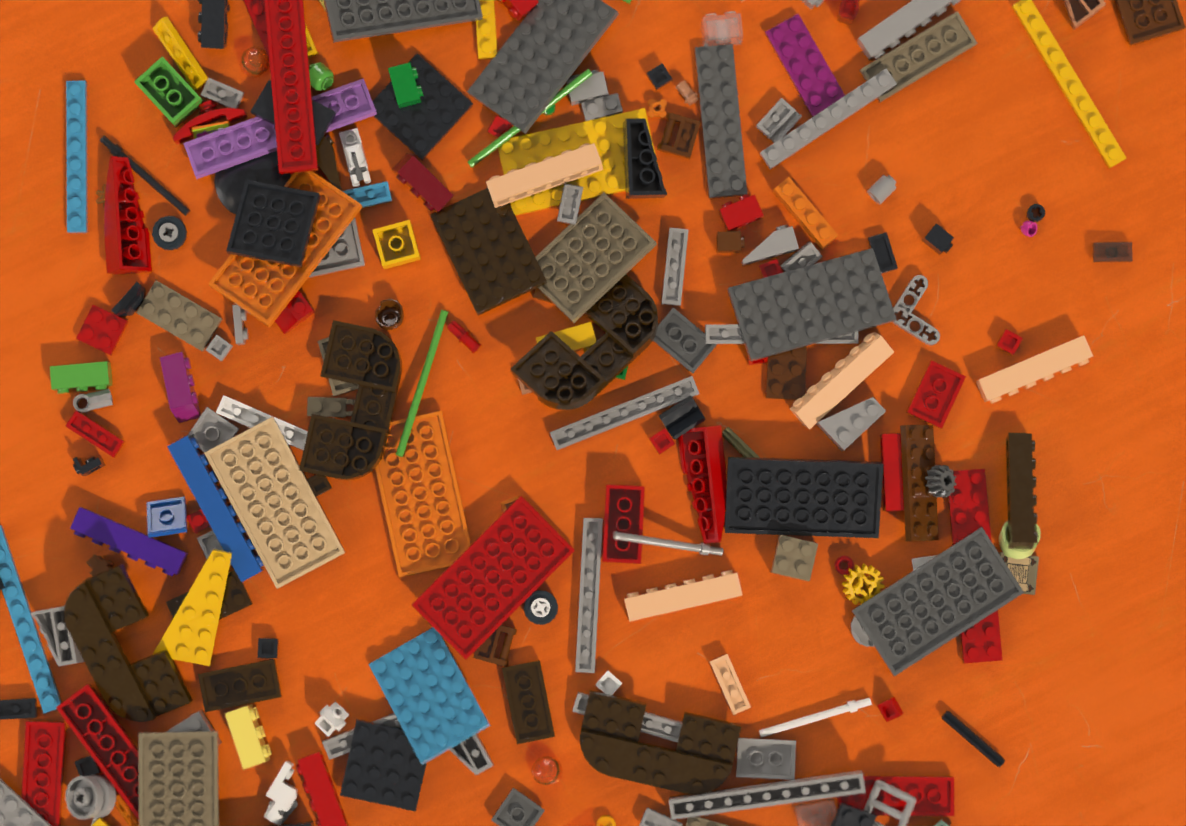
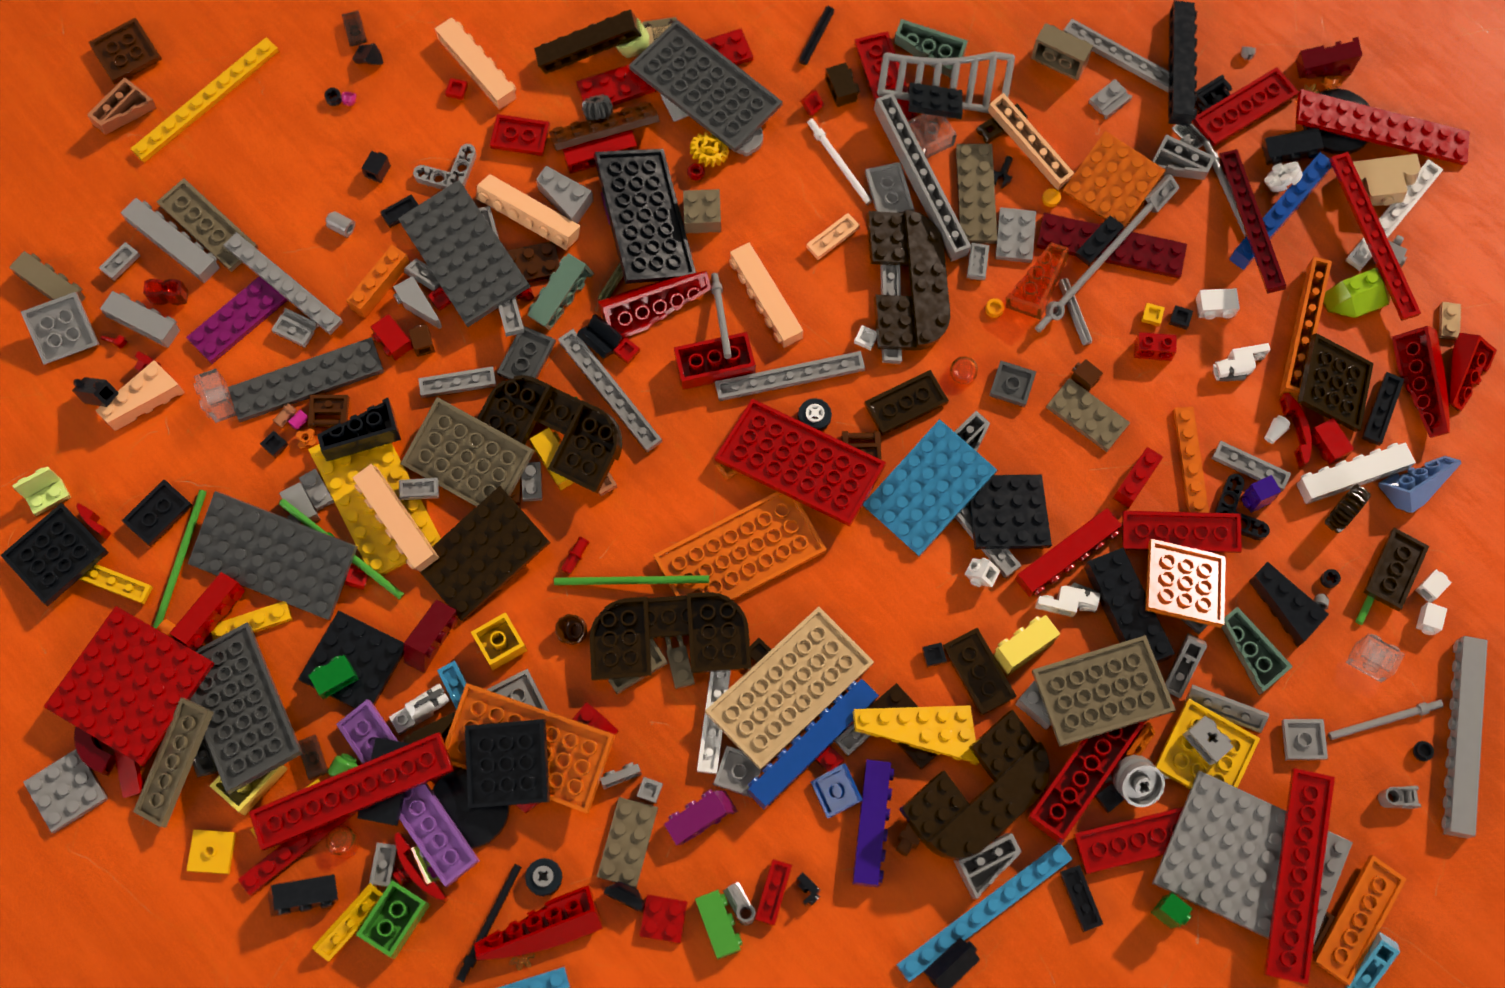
camera: 105 degrees left, 15 degrees down
(339, 51) = (313, 757): none -> clear smoke plate
(549, 314) = (532, 482): none -> light grey plate
(678, 104) = (298, 420): none -> dark pink hinge
(742, 390) = (559, 291): none -> sand green wedge
(903, 747) = (841, 84): none -> dark brown brick
(1074, 259) = (368, 54): none -> black tile

